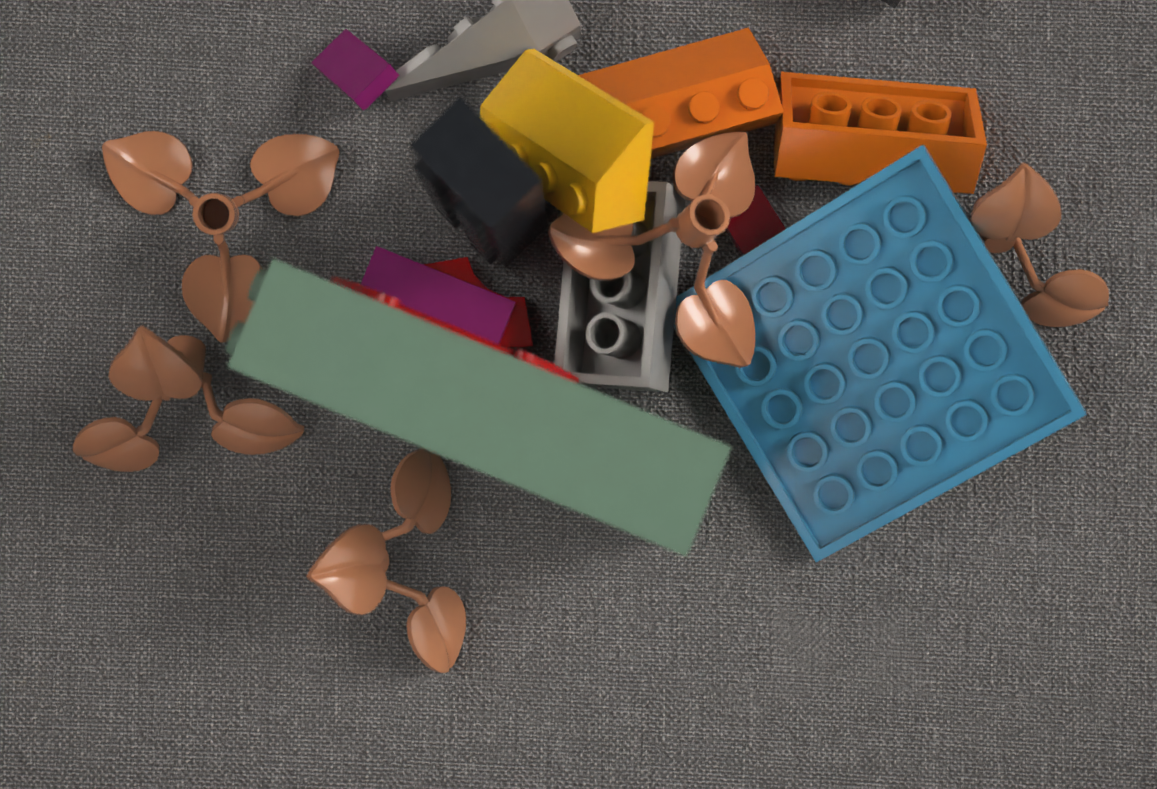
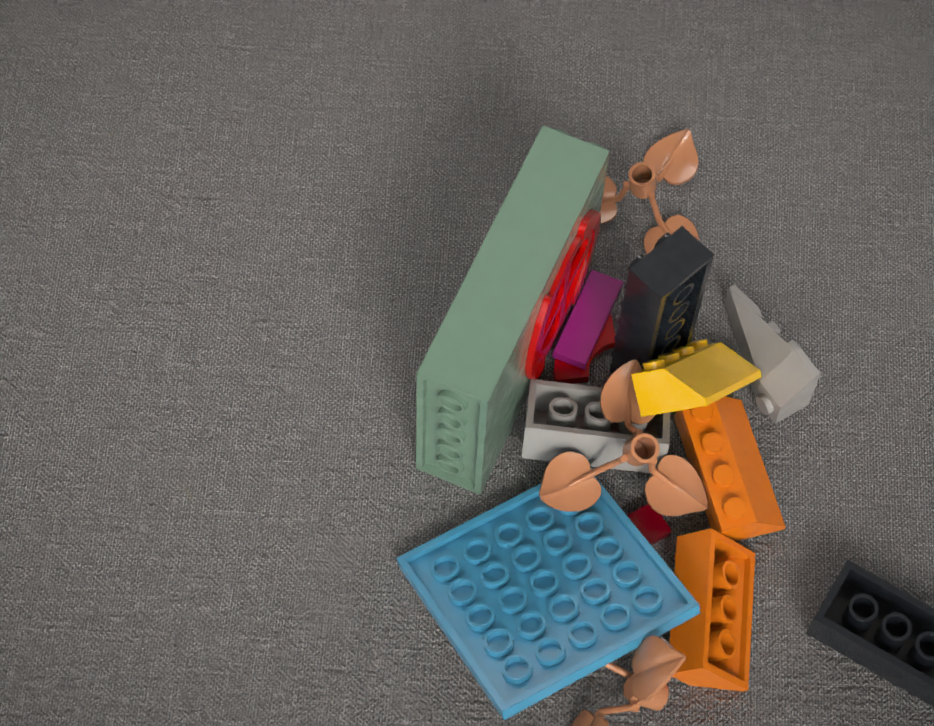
camera: 90 degrees right, 25 degrees down
(175, 369) = (490, 135): nougat plant -> none
(355, 69) = (742, 272): magenta tile -> none
(357, 560) = (410, 240): nougat plant -> none

